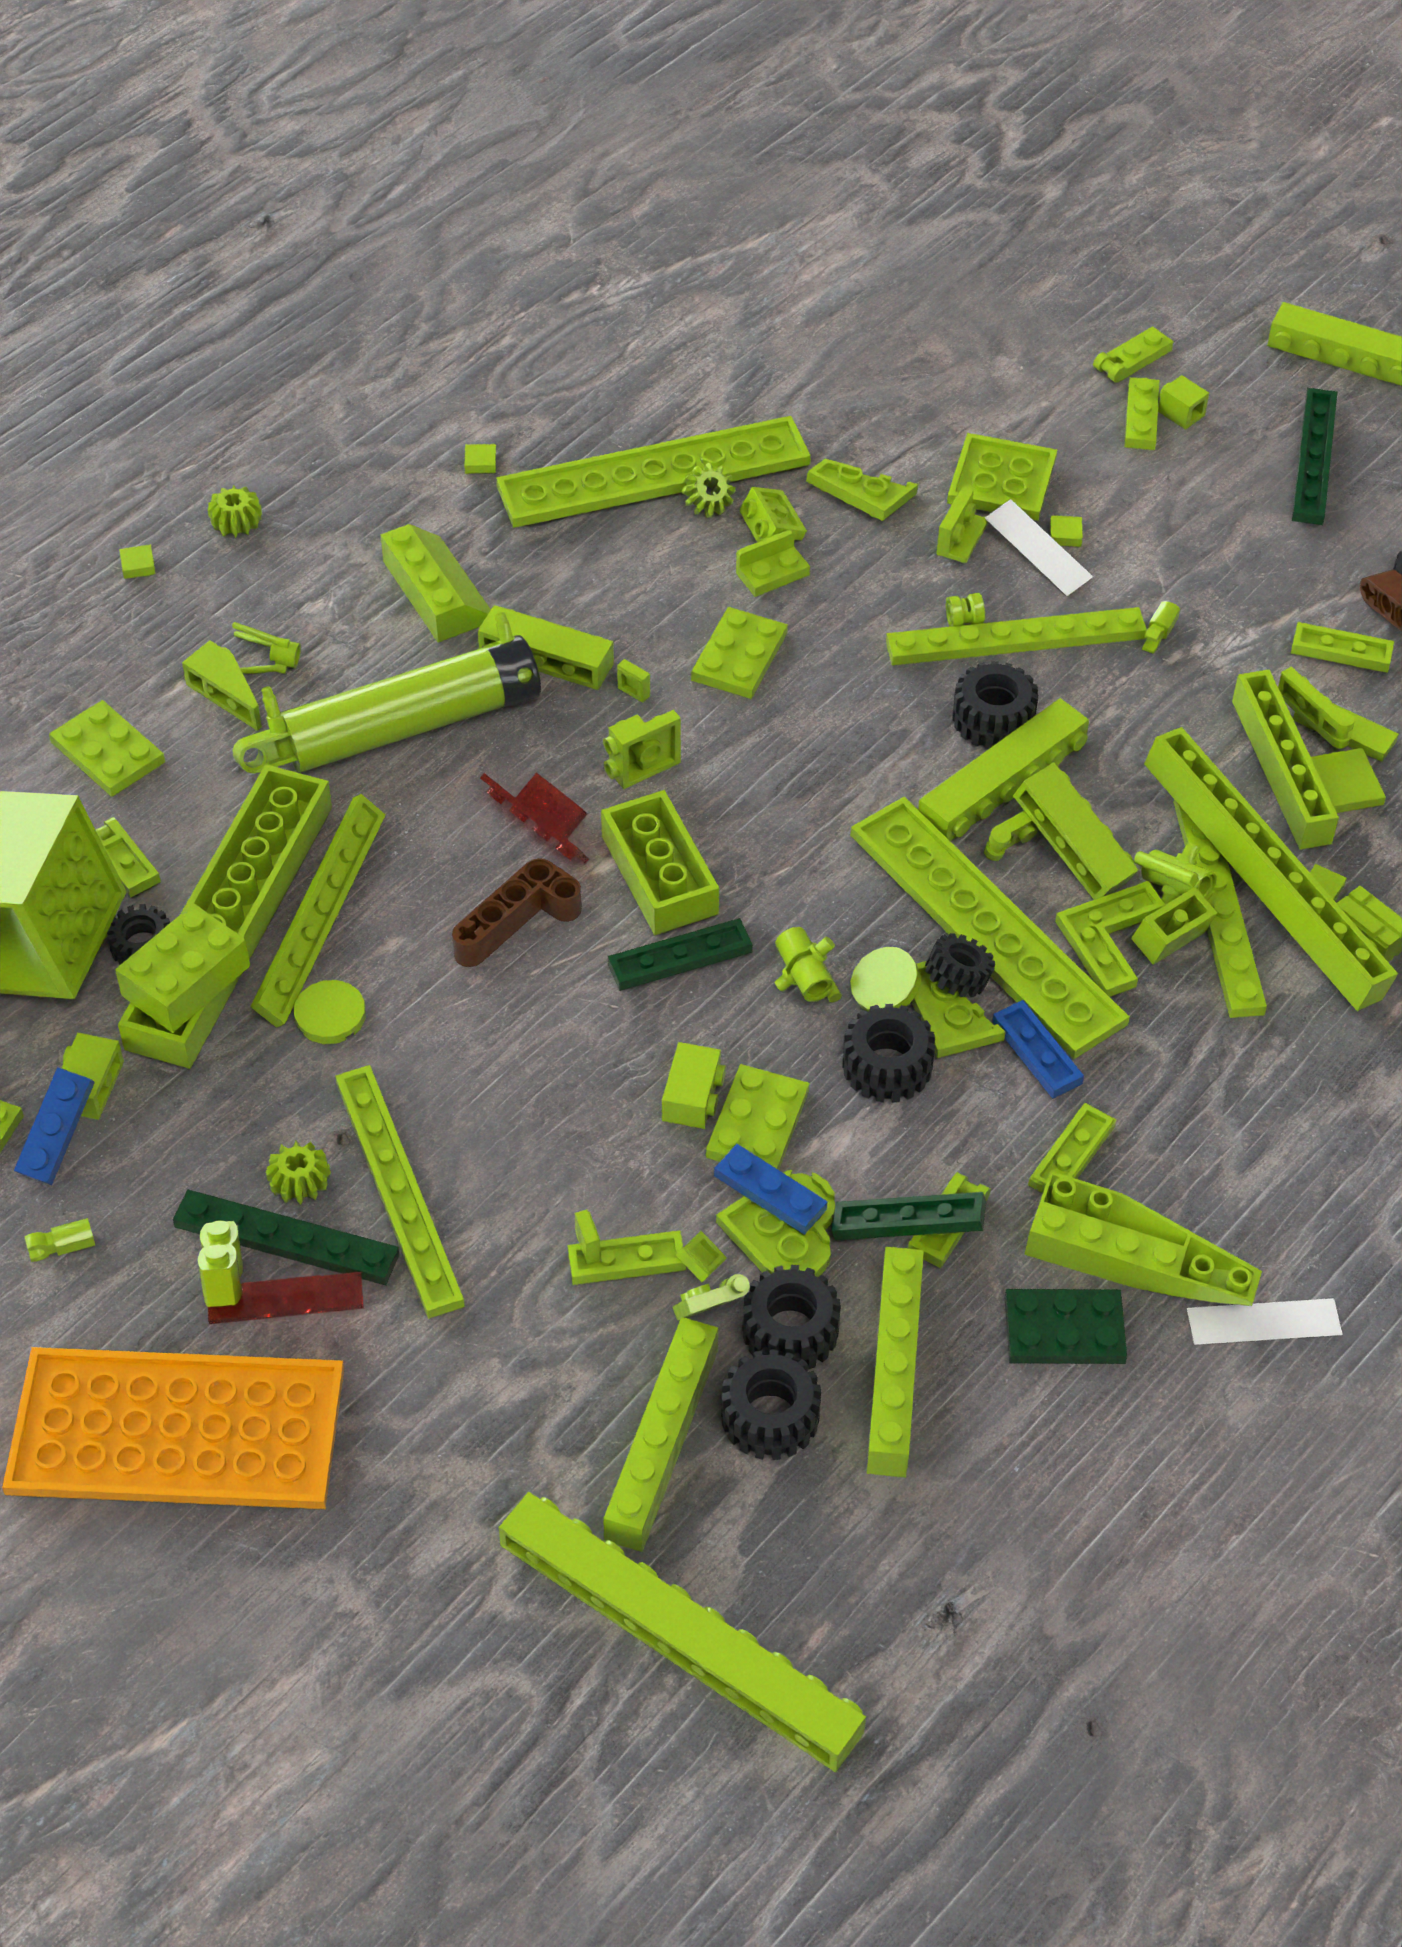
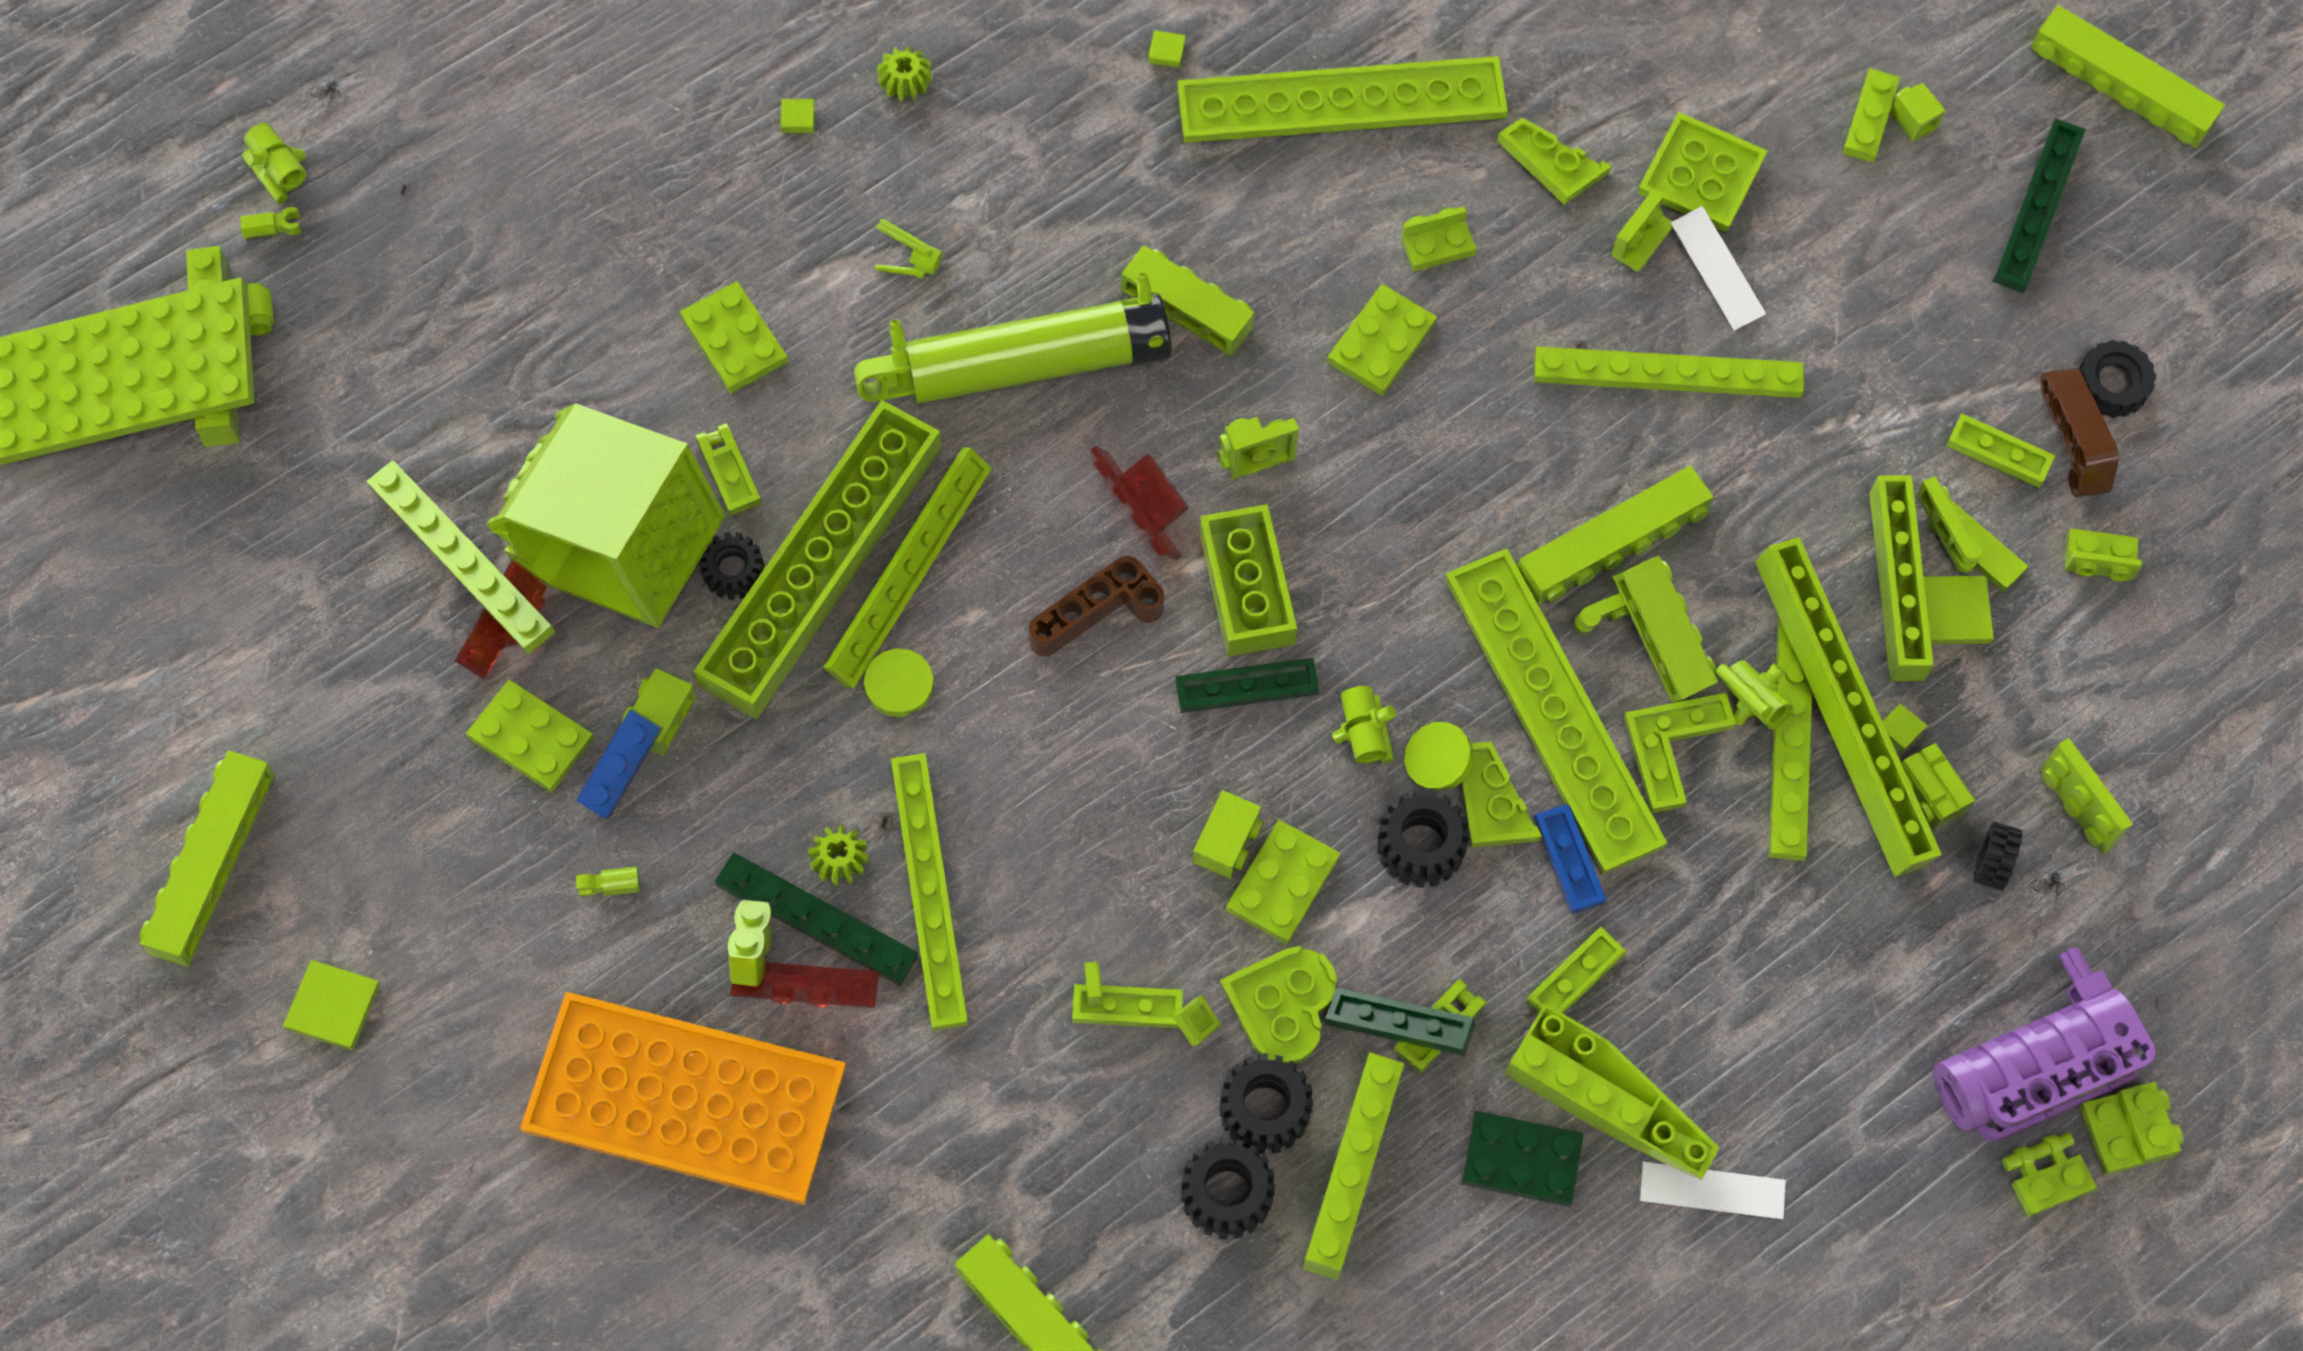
camera: 10 degrees right, 15 degrees up
(183, 967) = (763, 626): lime brick -> none
(218, 677) = (854, 275): lime slope -> none
(433, 581) = (1092, 198): lime slope -> none
(633, 680) = (1267, 357): lime tile -> none
(661, 1435) = (1121, 1196): lime brick -> none
(697, 488) = (1380, 139): lime gear -> none
(703, 1298) = (1187, 1073): lime plate -> none
(770, 513) = (1450, 179): lime bracket -> none
(770, 1189) = (1276, 964): blue plate -> none
(960, 965) = (1504, 767): black tyre -> none
(965, 610) = (1622, 334): lime wheel -> none
(993, 702) = (1629, 434): black tyre -> none
(1066, 530) = (1752, 251): lime tile -> none
(1133, 354) = (1882, 36): lime plate -> none
(1160, 625) = (1819, 388): lime bar -> none
(1174, 925) = (1737, 751): lime brick -> none

